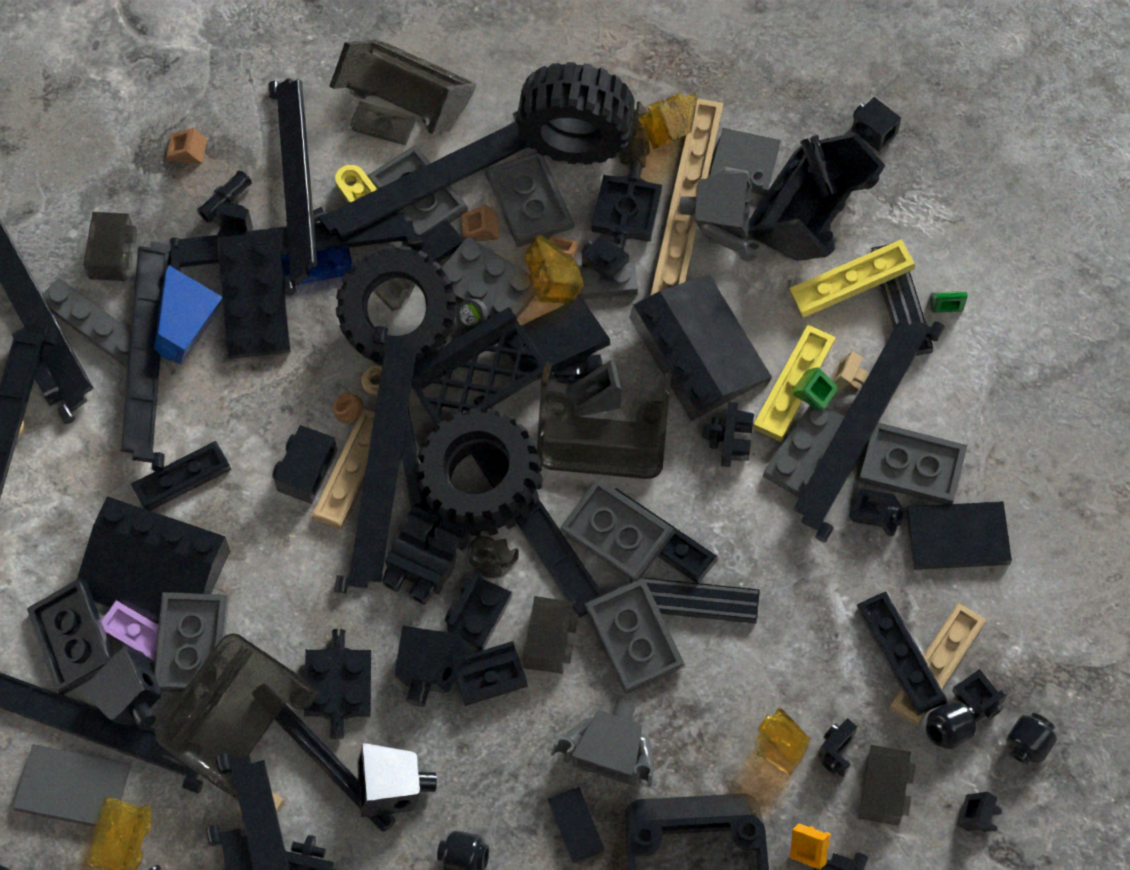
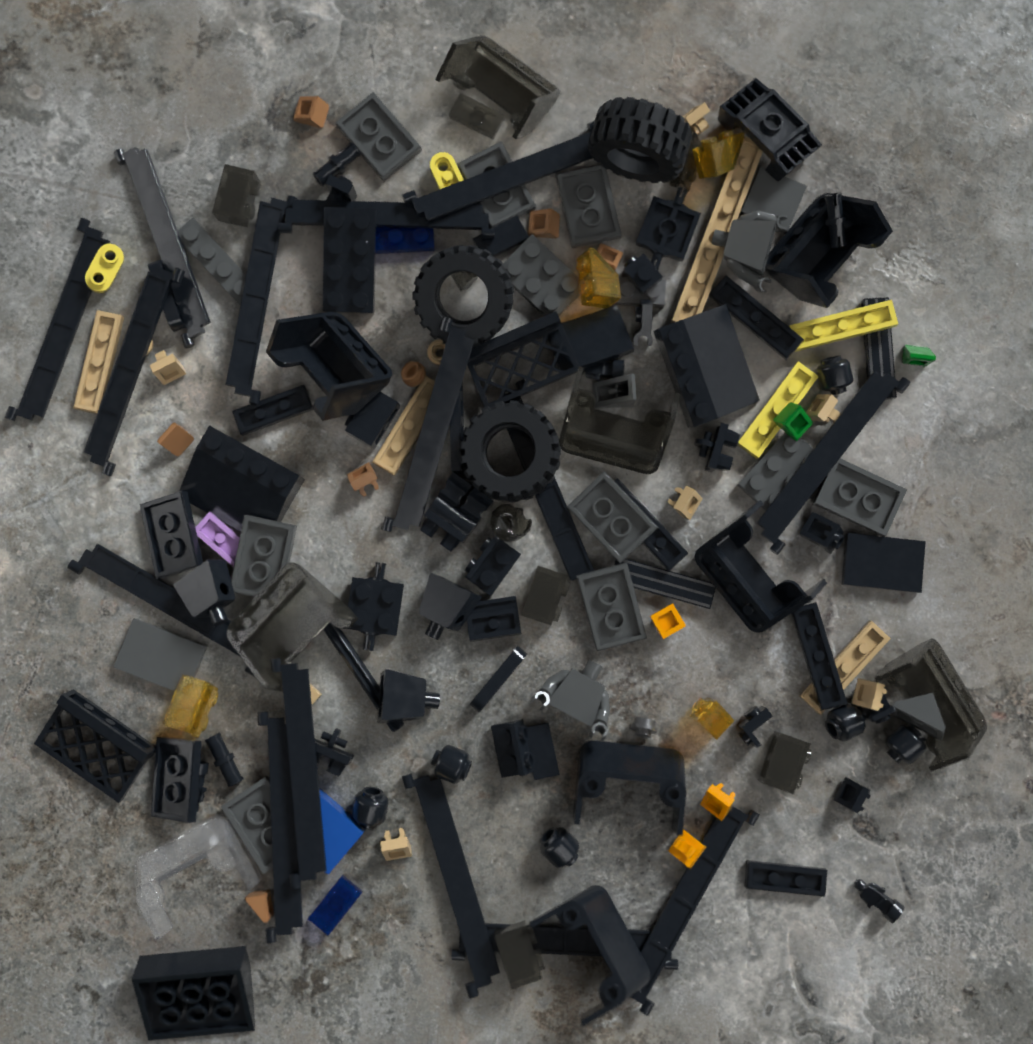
camera: 10 degrees right, 20 degrees up
(46, 446) = (167, 368): none -> tan tile
(64, 525) = (176, 439): none -> medium nougat slope
(183, 314) = (289, 271): blue slope -> none
(247, 399) = (333, 357): none -> black windscreen
(258, 154) = (378, 136): none -> dark grey tile
(296, 180) = (397, 160): black piece -> none
(302, 533) = (361, 477): none -> medium nougat tile
(471, 313) = (525, 306): tile -> none
(507, 743) = (498, 679): none -> black beam
(538, 824) = (513, 748): none -> black bracket
(615, 302) = (644, 316): none -> black plate
(639, 89) = (695, 118): none -> tan tile
(701, 771) = (644, 727): none -> flat silver plate
(705, 501) = (687, 502): none -> tan tile
(706, 638) = (667, 621): none -> light orange tile
(726, 82) = (771, 126): none -> black plate
(750, 286) = (756, 317): none -> black tile
(785, 576) = (745, 582): none -> black windscreen
(854, 332) = (834, 374): none -> black head
(875, 123) = (890, 183): black brick -> none
(970, 681) = (868, 694): none -> tan tile
(1040, 695) = (921, 713): none -> dark grey slope
(1055, 674) = (927, 671): none -> clear smoke windscreen

